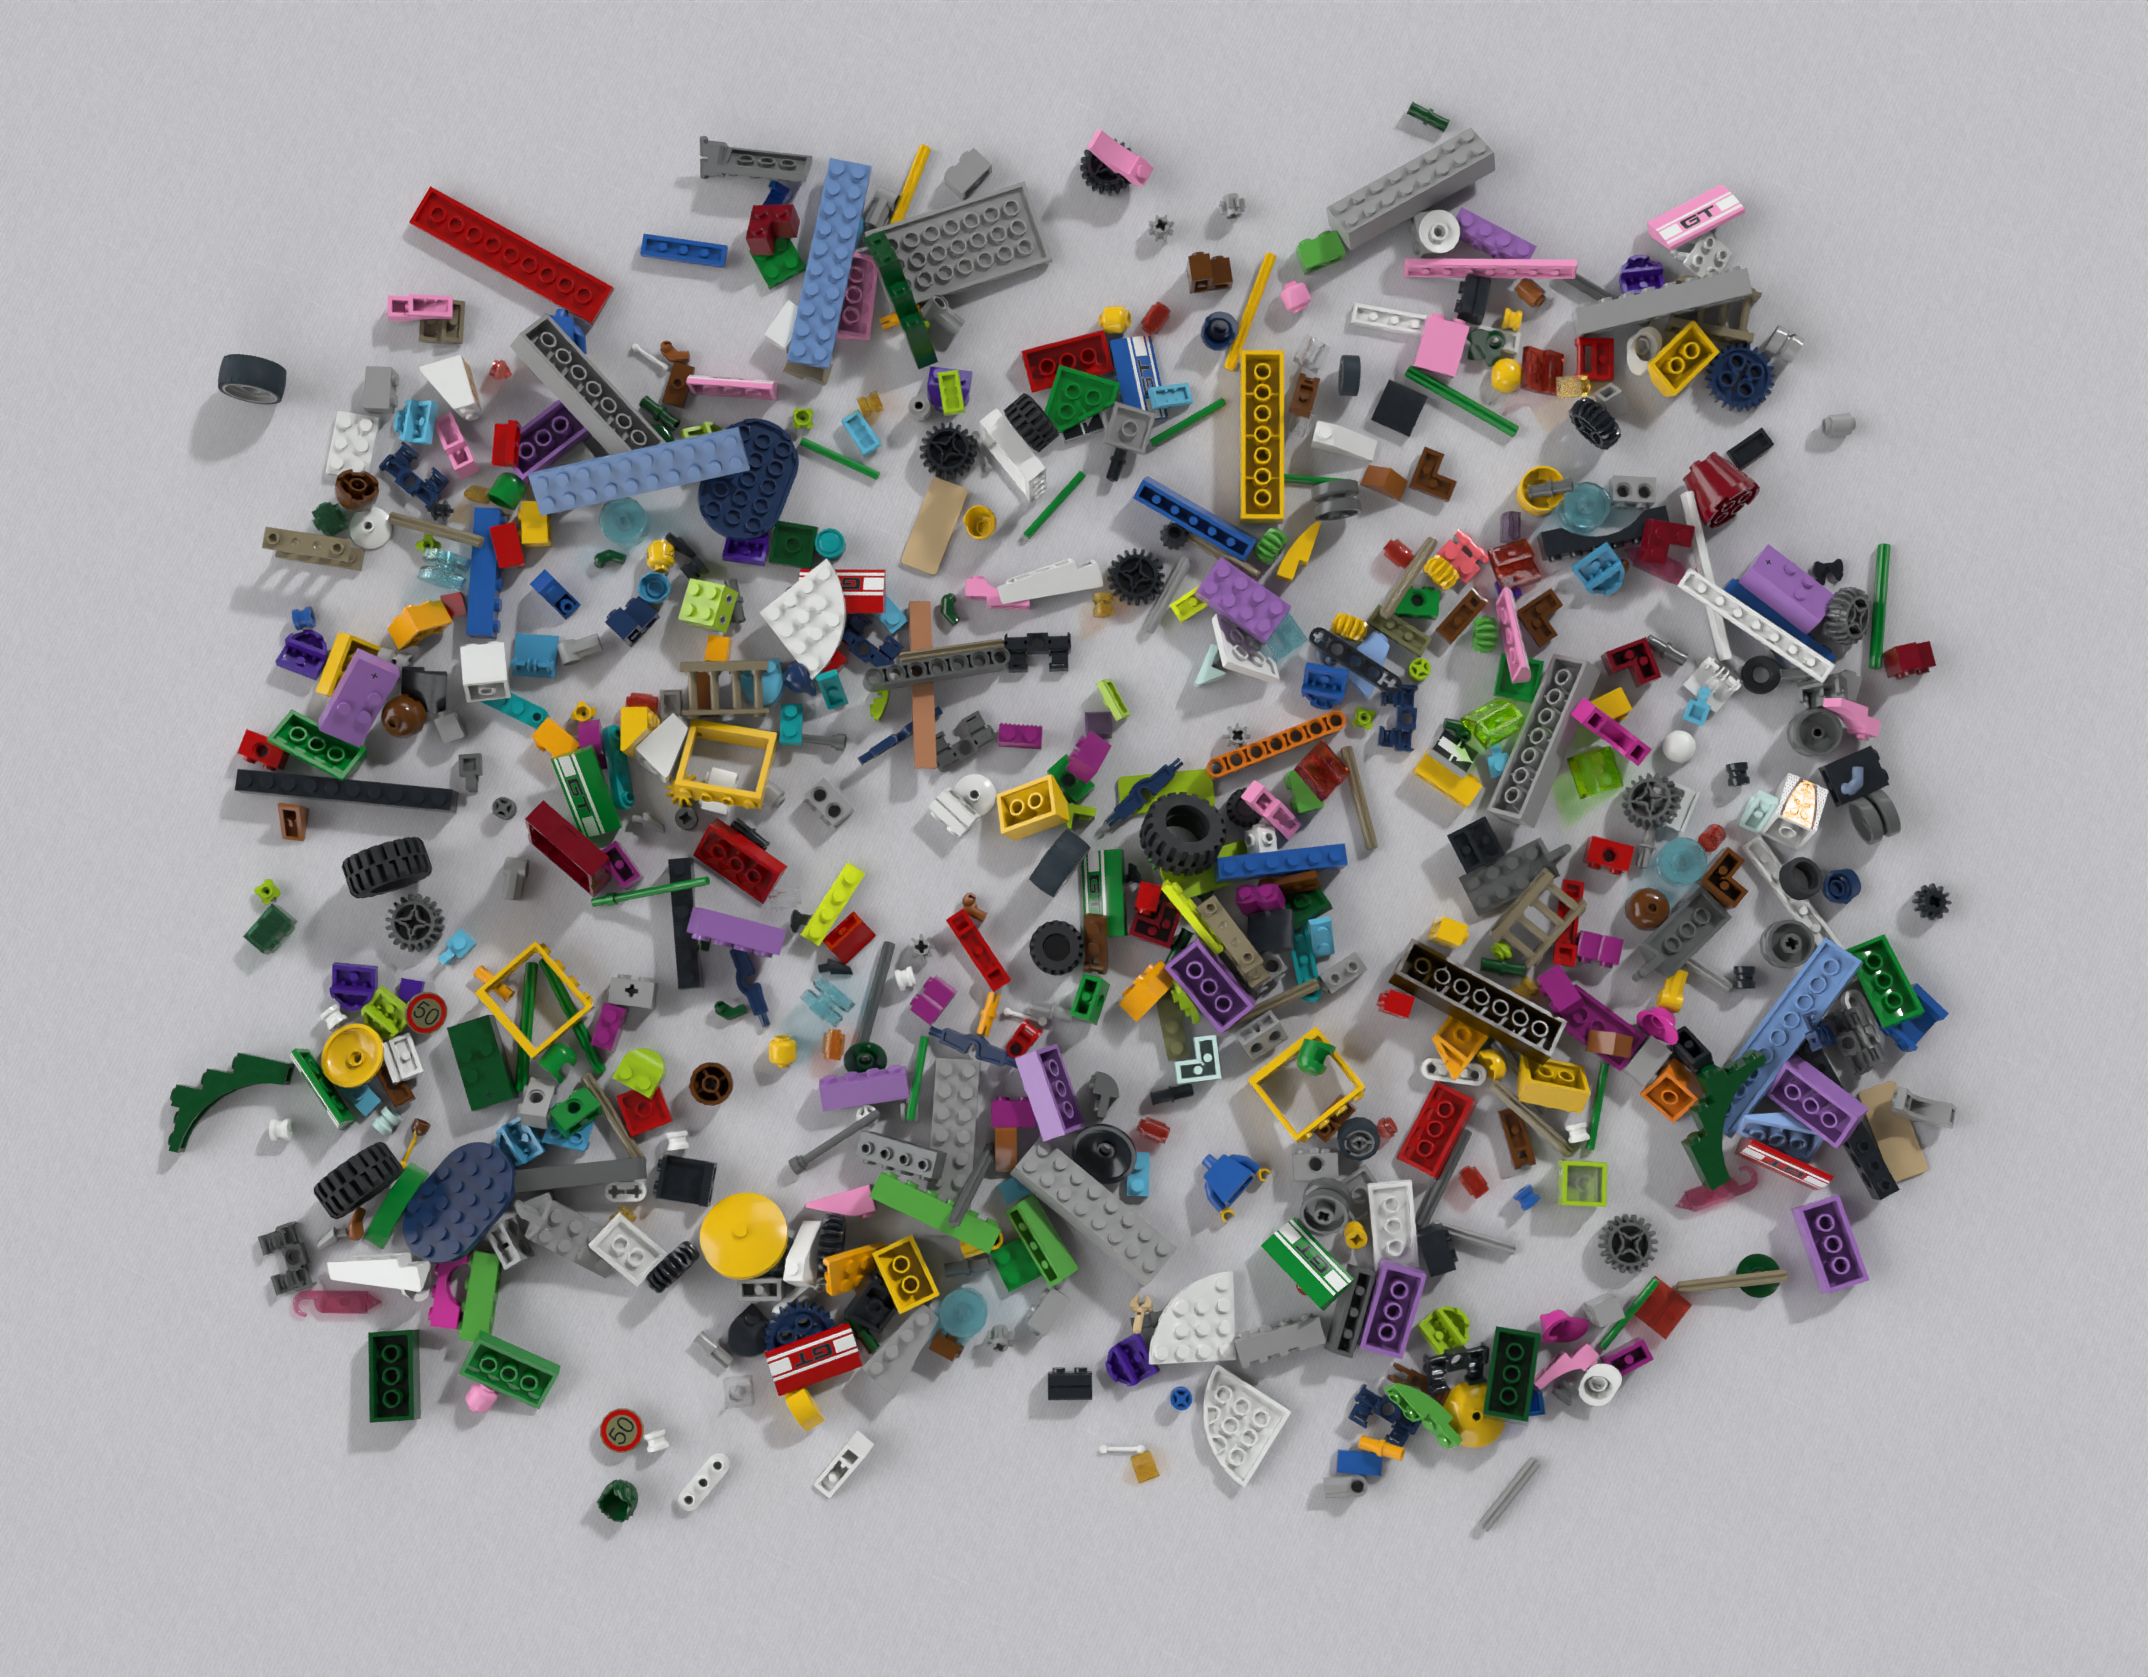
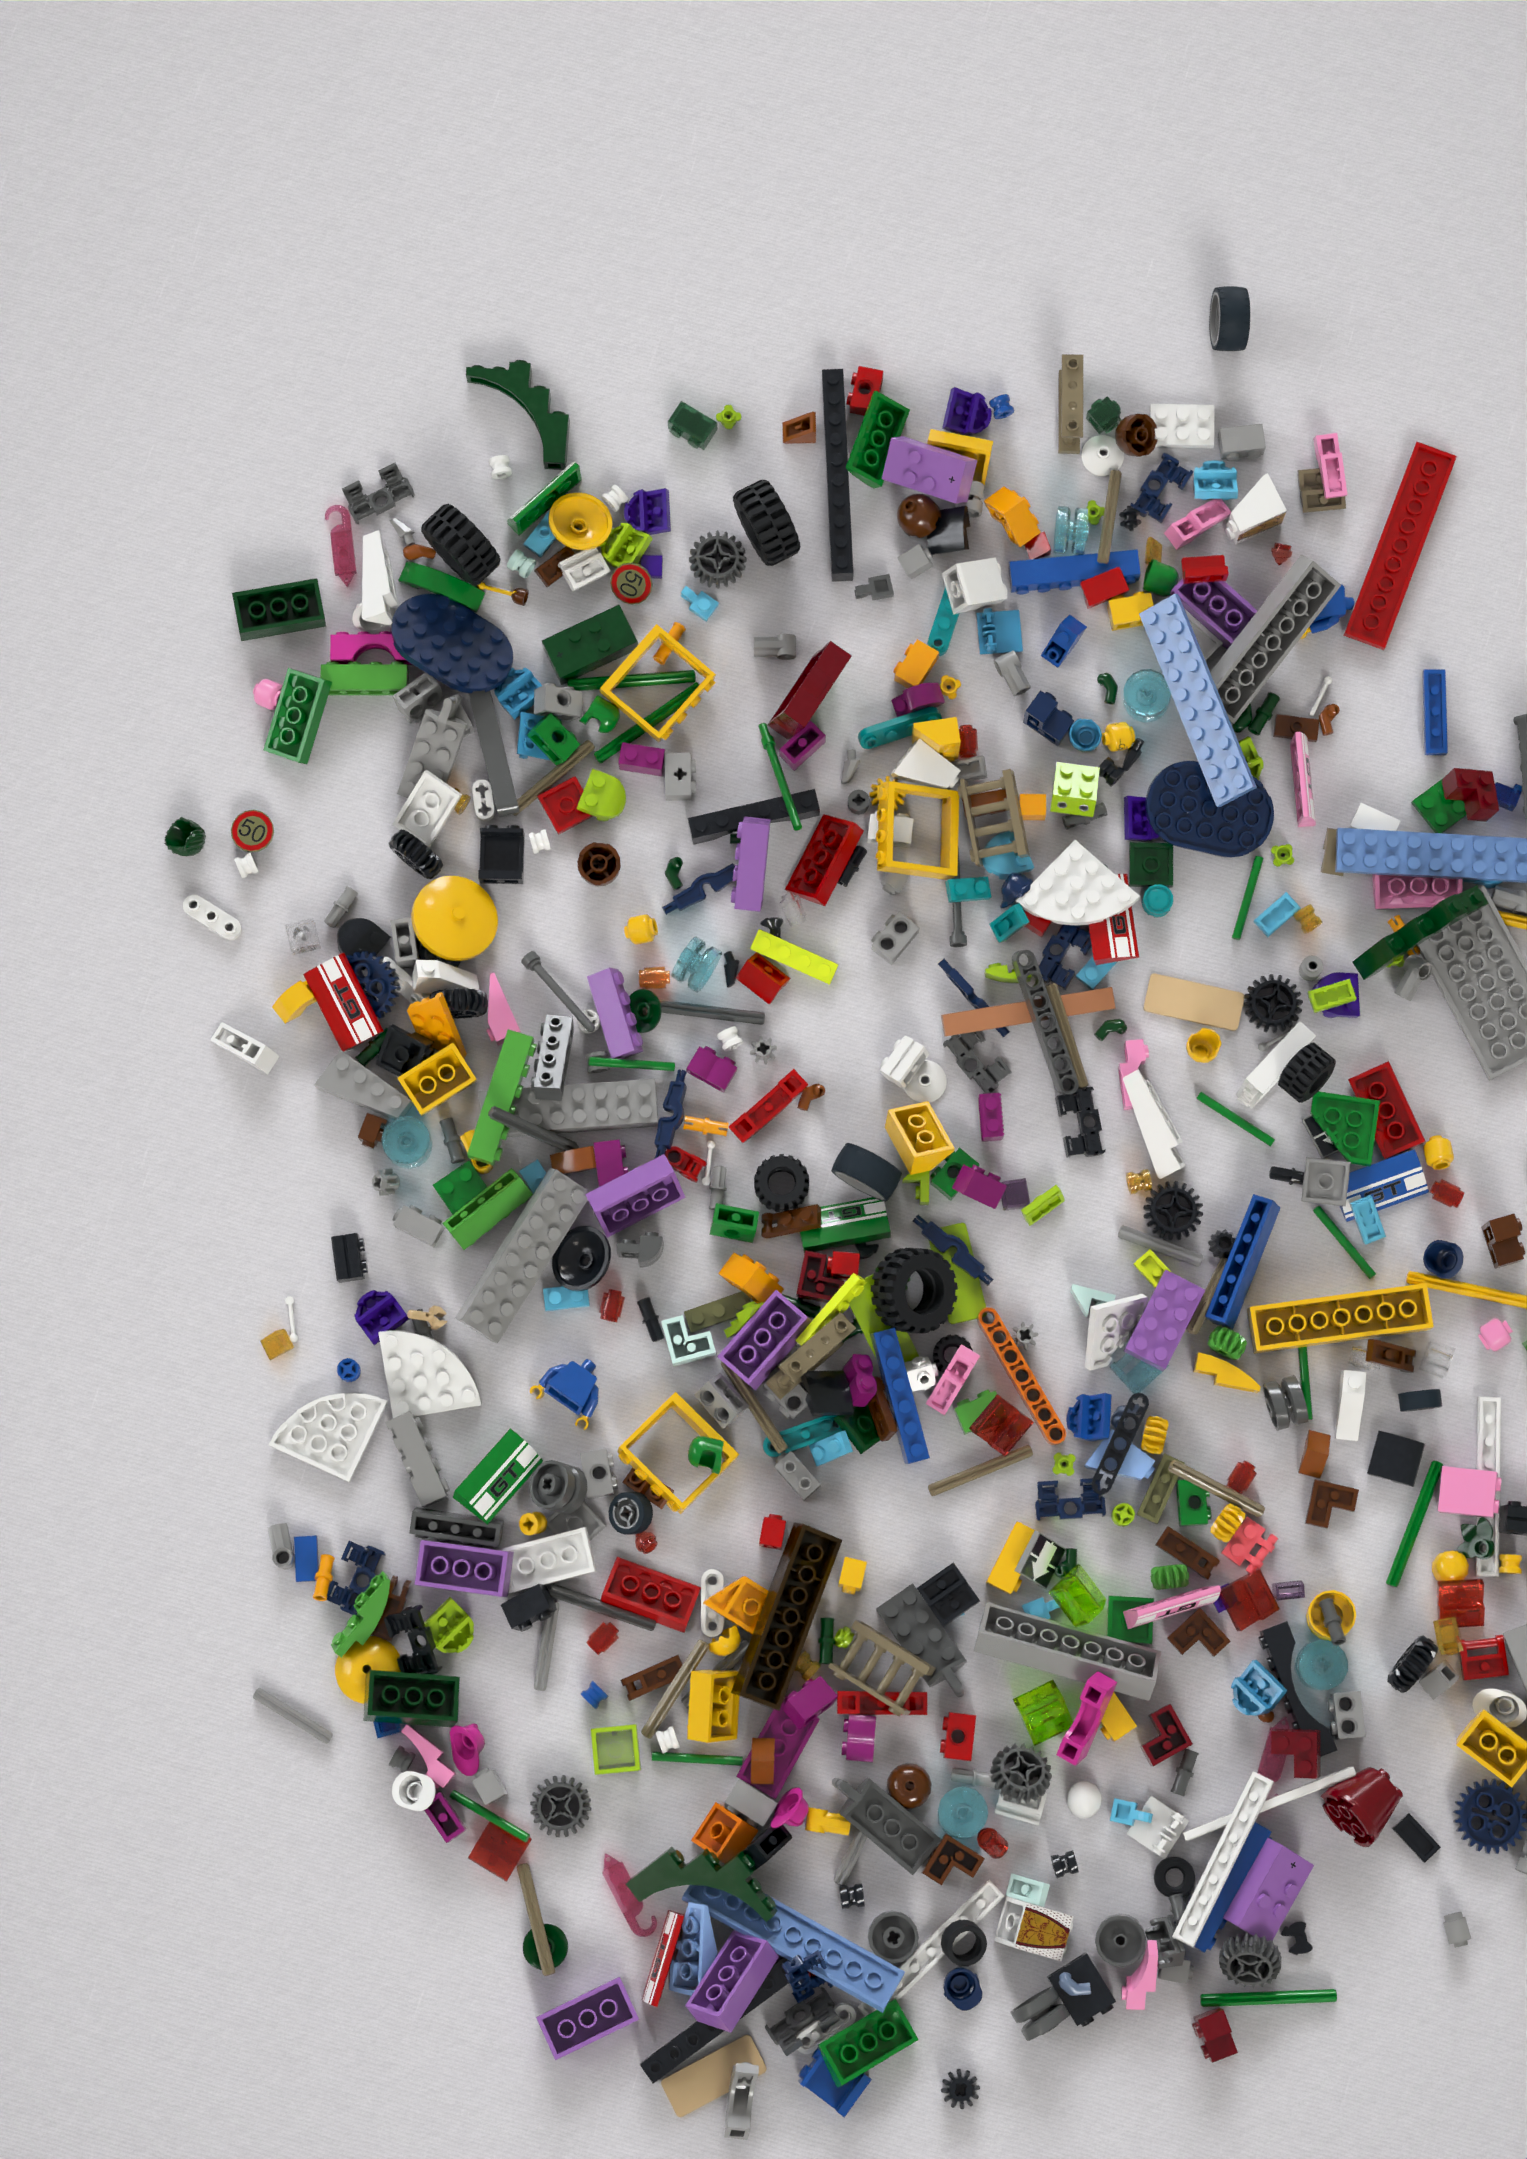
camera: 85 degrees right, 5 degrees down
(500, 808) = (845, 622): dark grey wheel -> none
(587, 791) = (870, 701): green slope -> none

